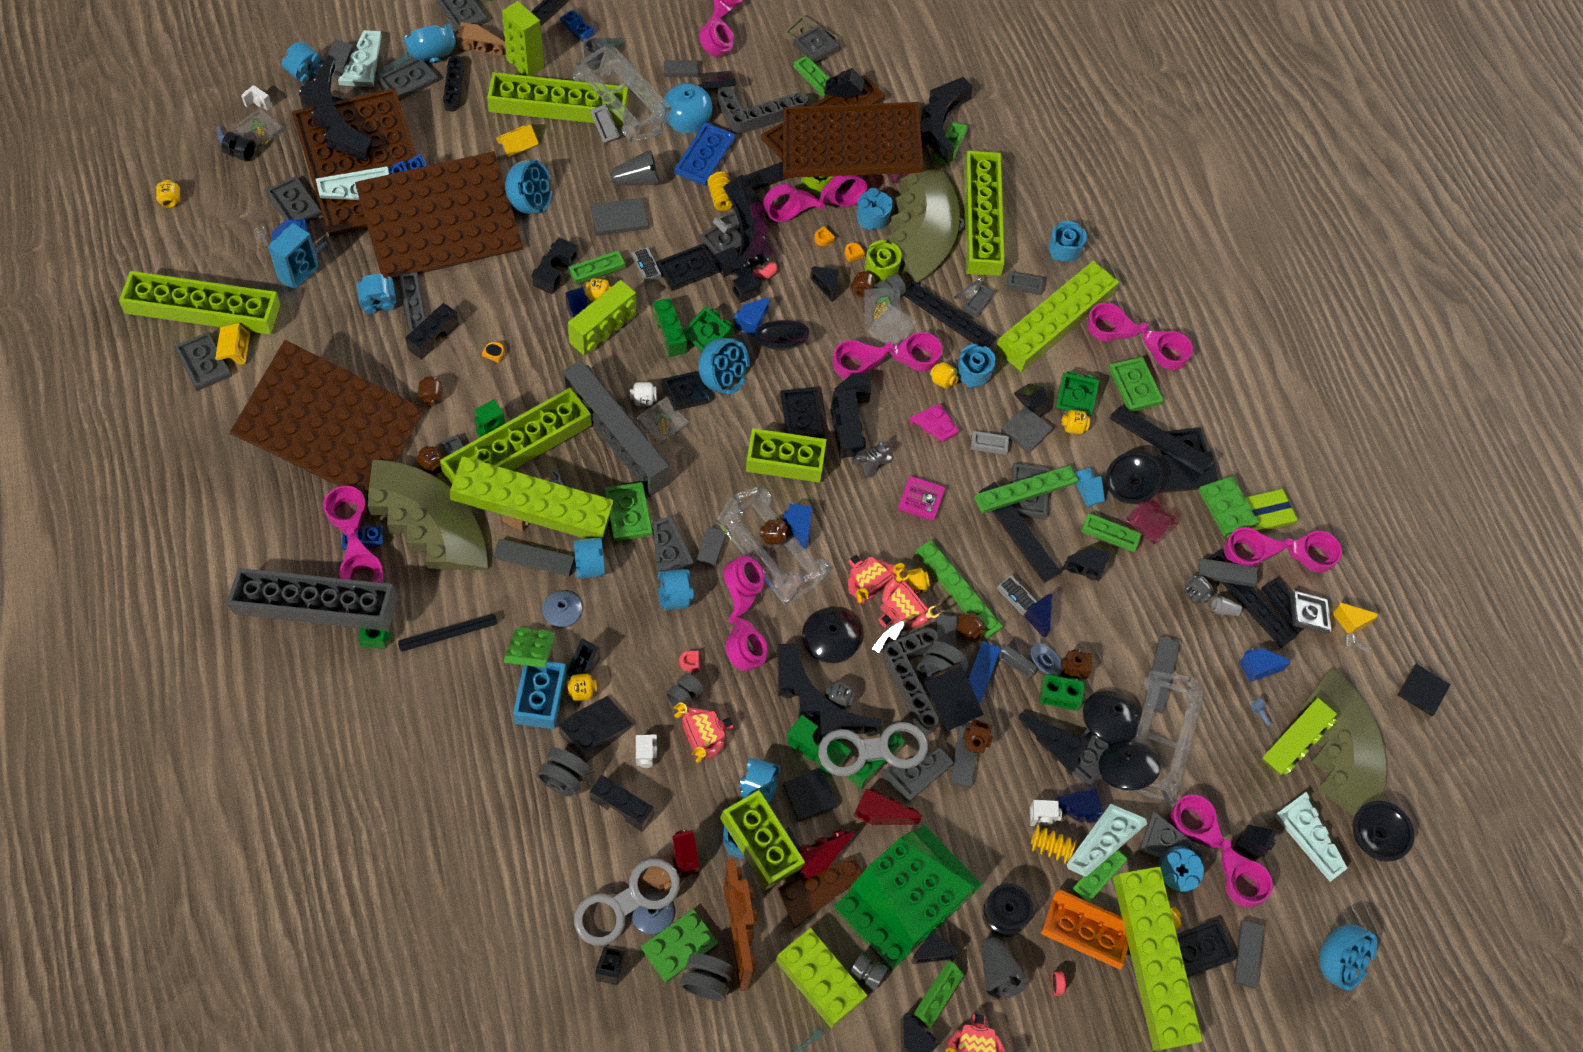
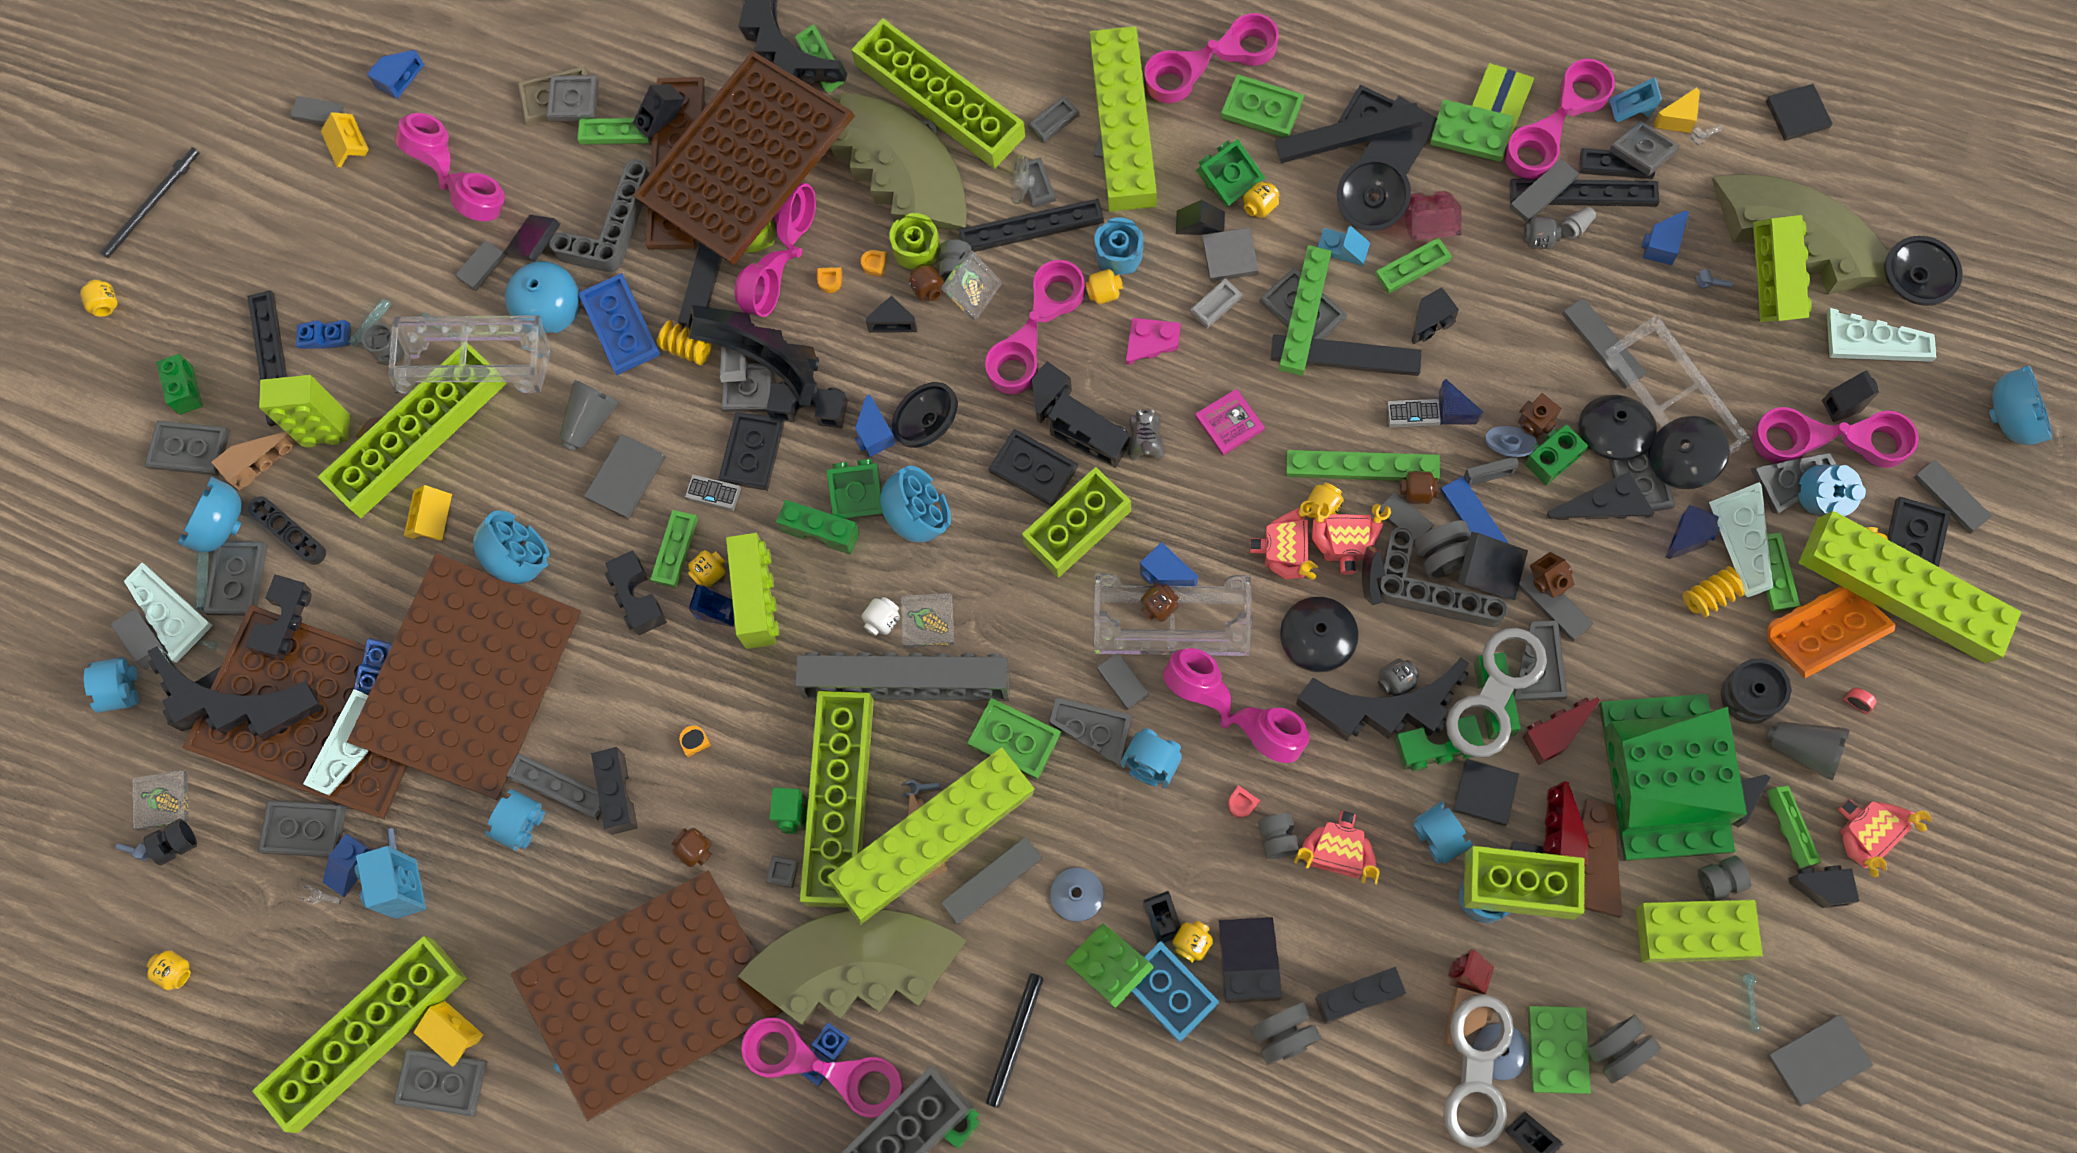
camera: 35 degrees left, 10 degrees up
(256, 96) = (115, 770): white bracket -> none
(386, 111) = (275, 639): none -> black arch
(429, 459) = (783, 909): reddish brown head -> none
(589, 558) = (1046, 822): dark azure brick -> none
(604, 123) = (491, 402): light grey tile -> none
(646, 750) = (1316, 927): white brick -> none
(685, 391) = (910, 569): black tile -> none
(742, 919) = (1604, 972): dark orange piece -> none
(765, 273) = (828, 371): coral arm -> none
(873, 209) = (841, 201): dark azure brick -> none
(892, 325) = (1005, 294): clear plate -> none
(1044, 812) = (1674, 574): white brick -> none
(1067, 241) = (1041, 38): dark azure brick -> none
(1336, 585) = (1638, 99): none -> dark azure slope

